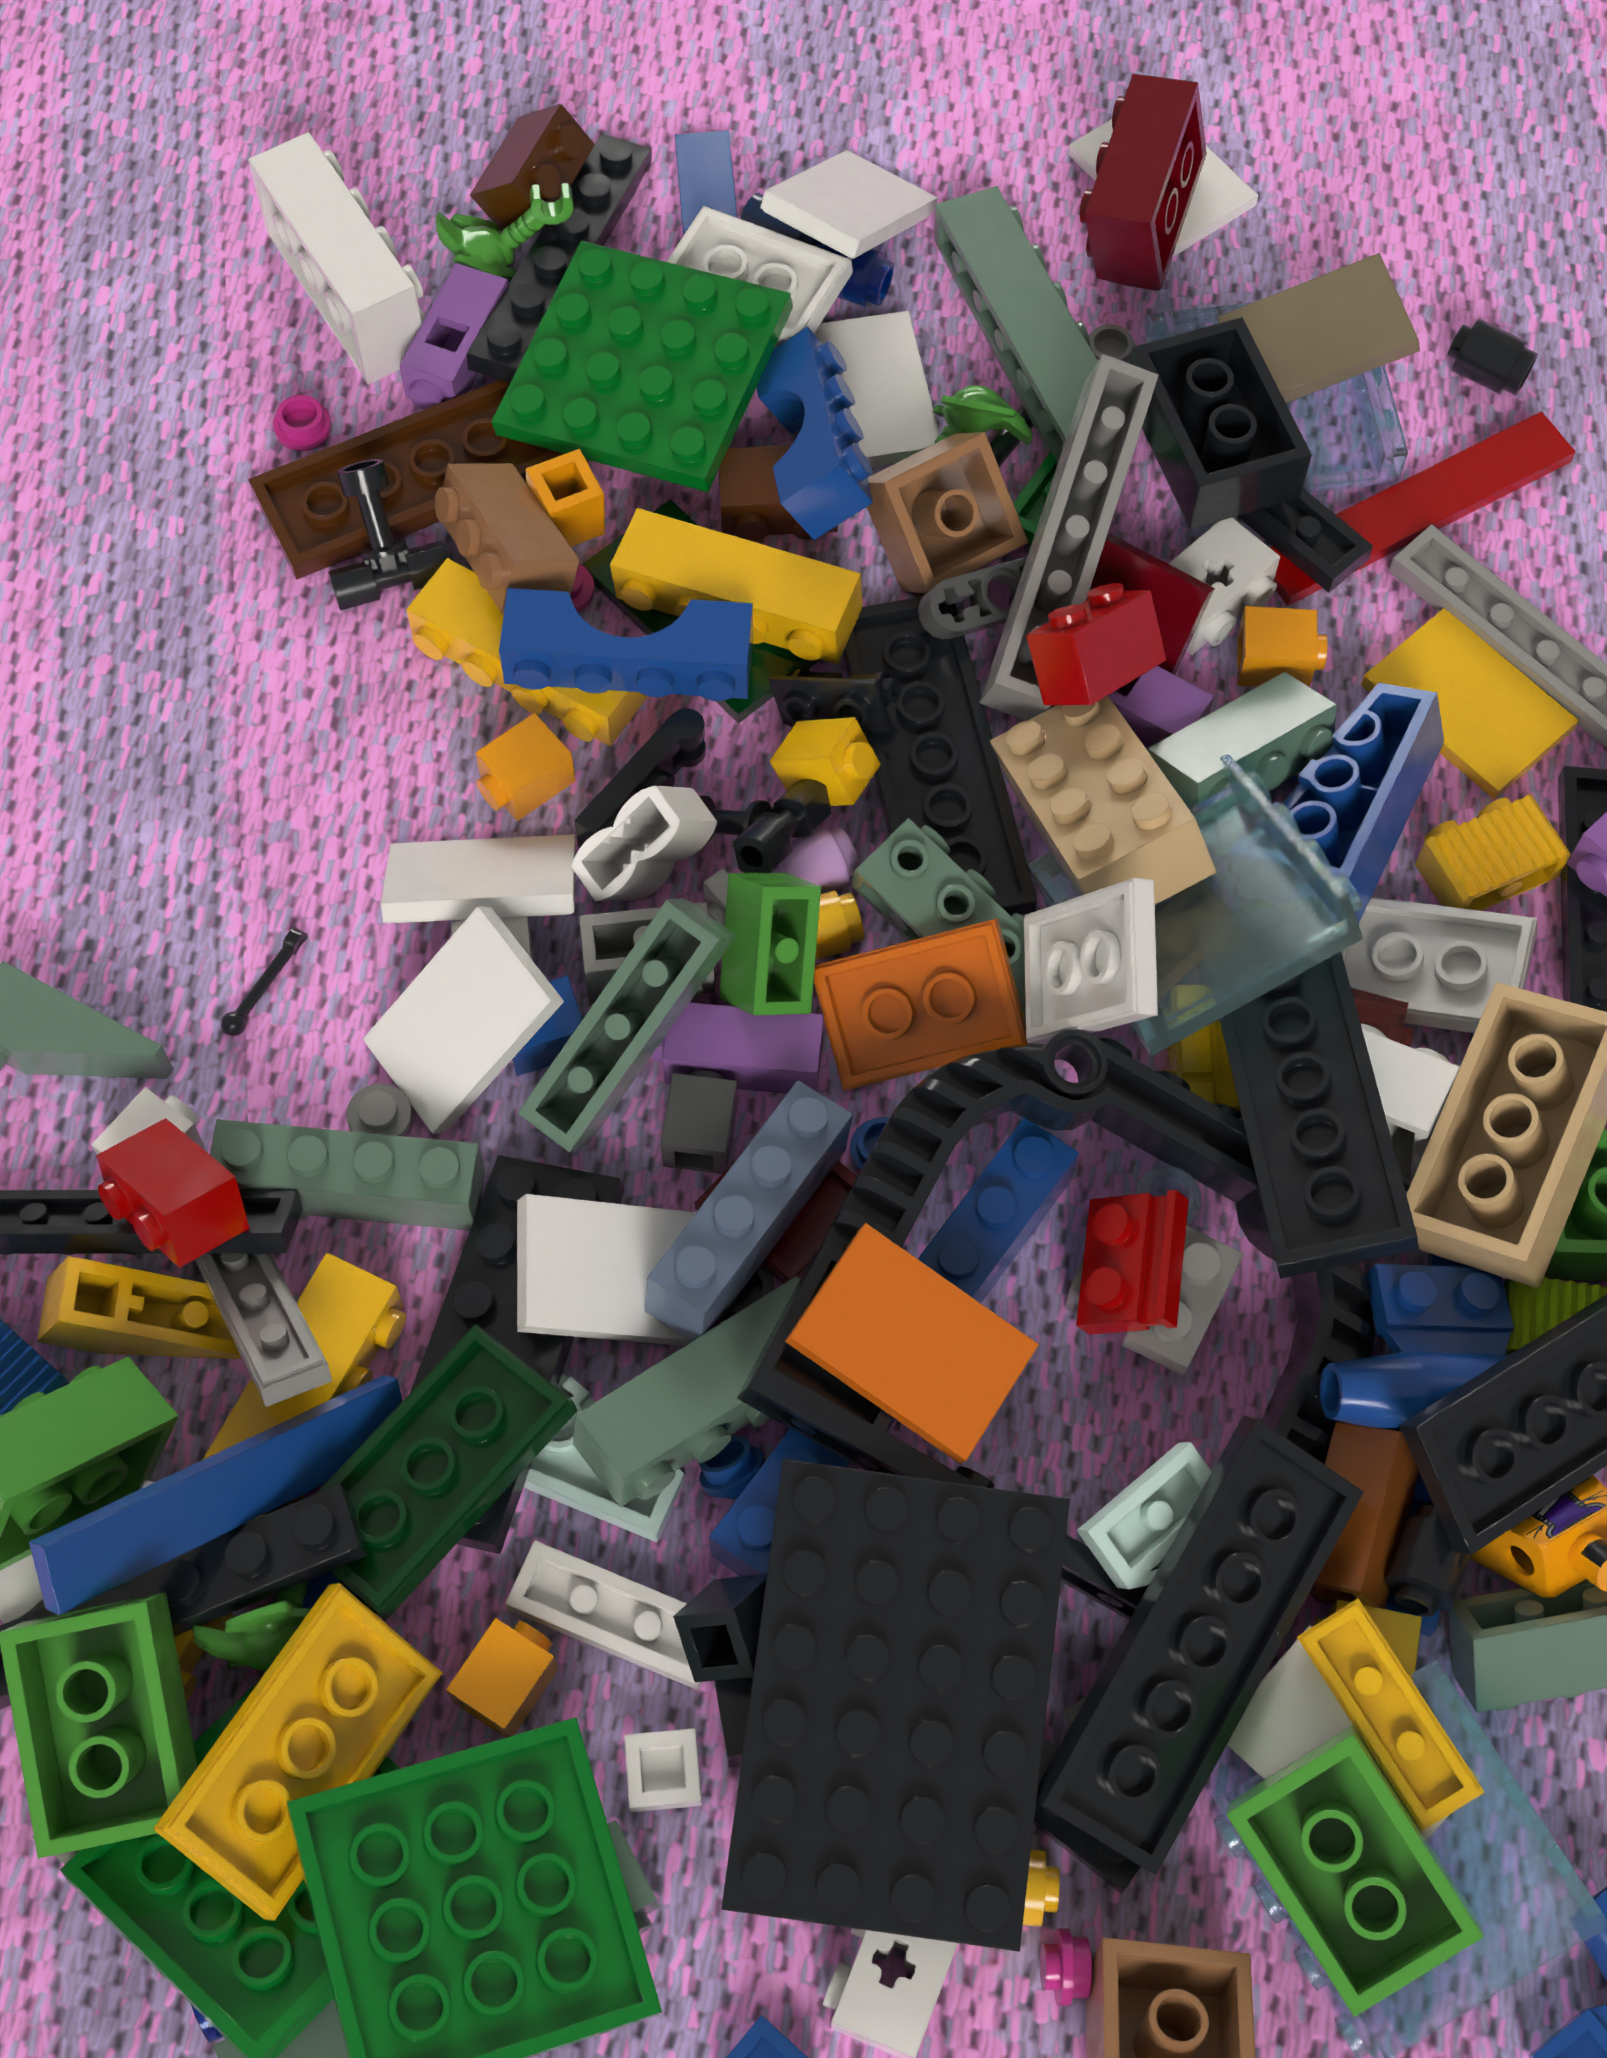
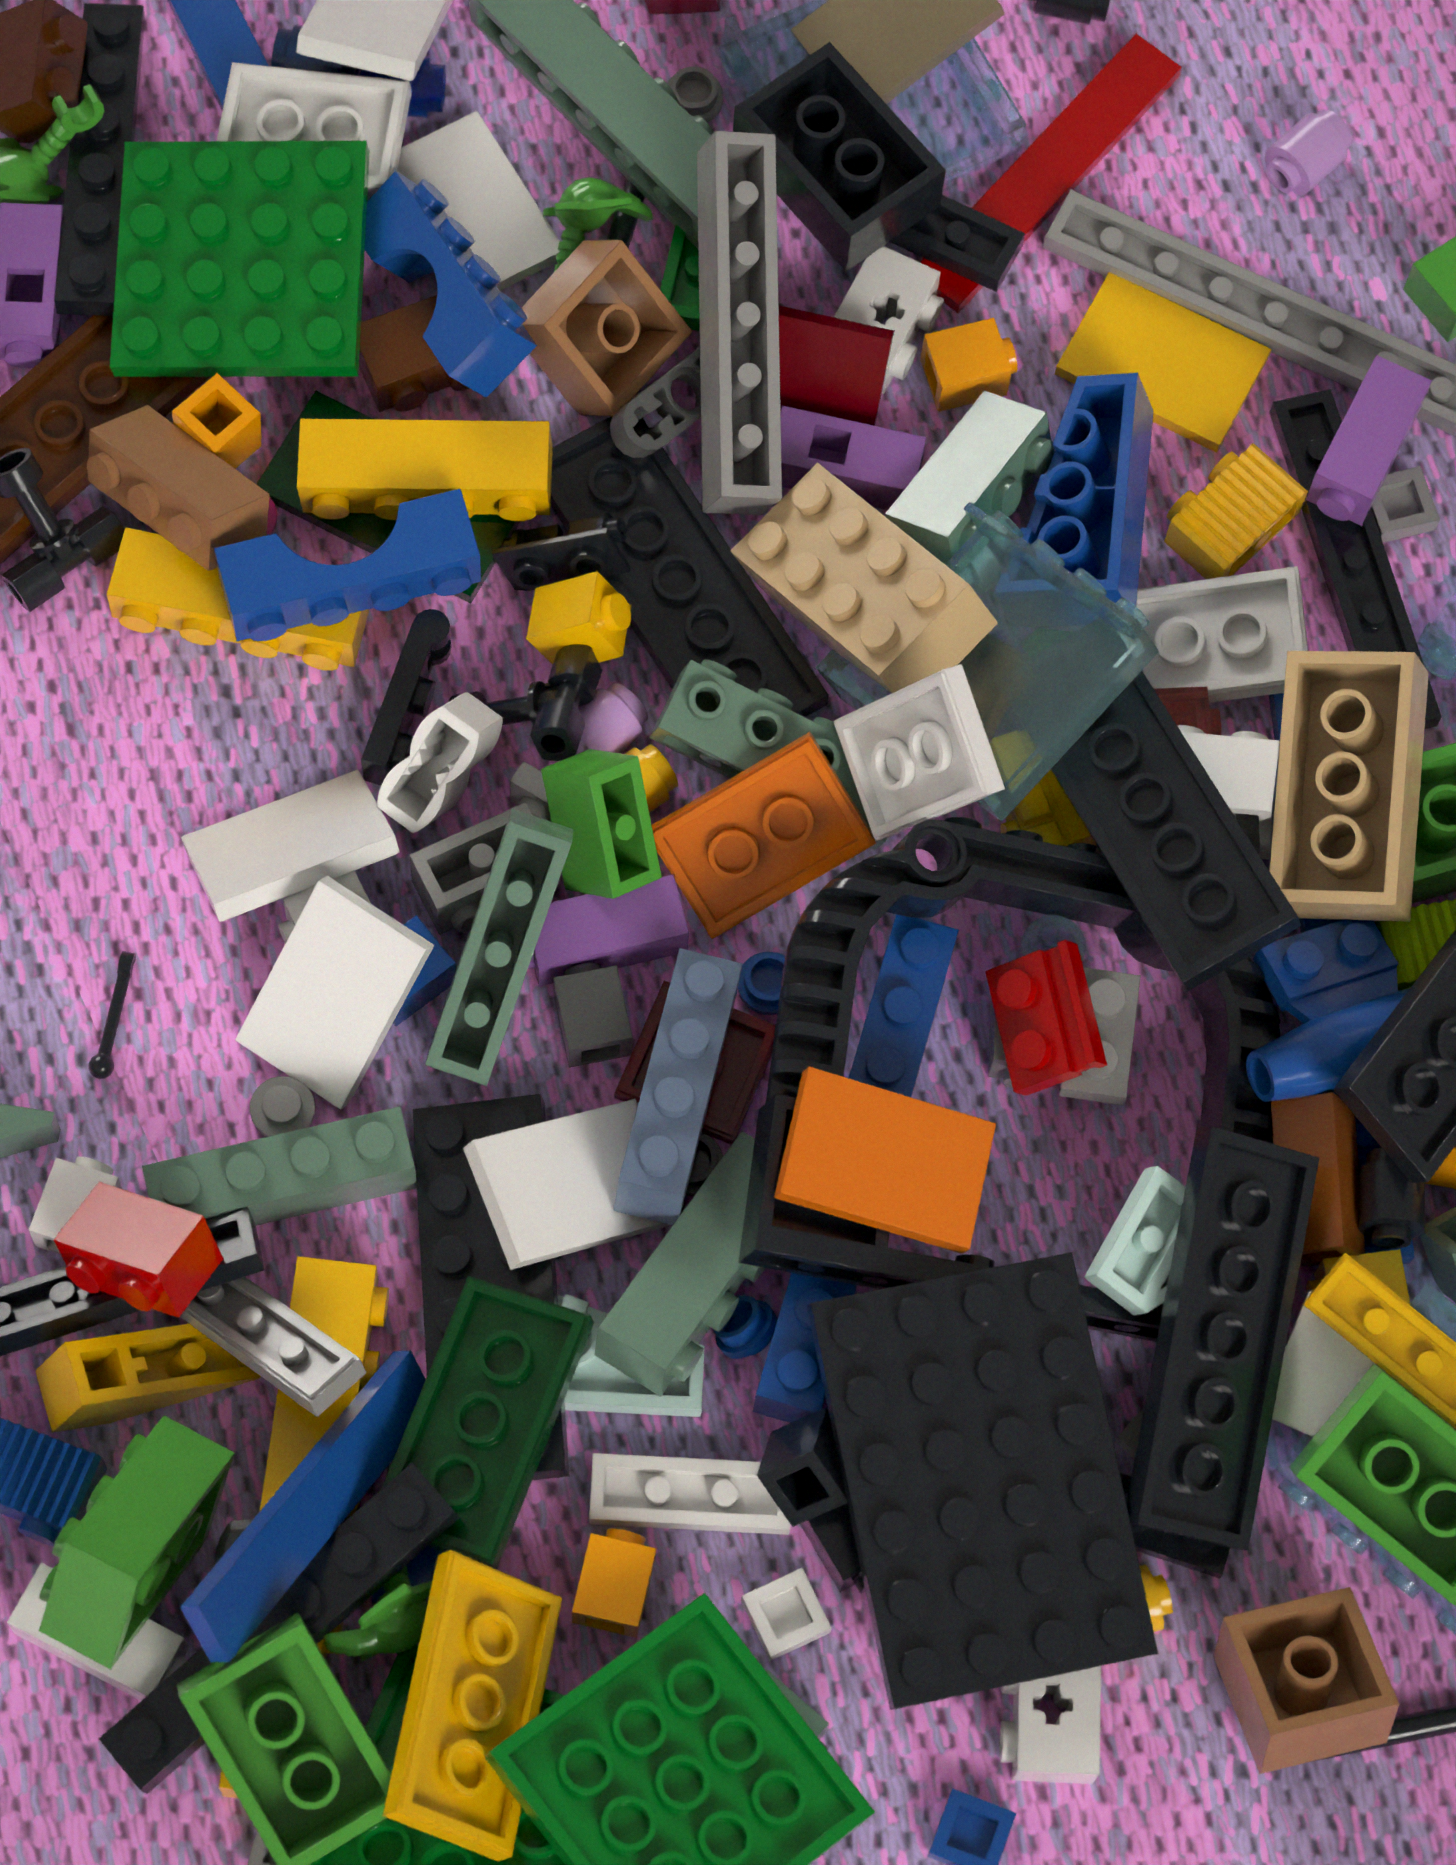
camera: 25 degrees left, 5 degrees up
(524, 768) = (284, 719): light orange brick -> none
(1066, 1967) = (1196, 1655): dark pink plate -> none
(1096, 645) = (807, 431): red brick -> none

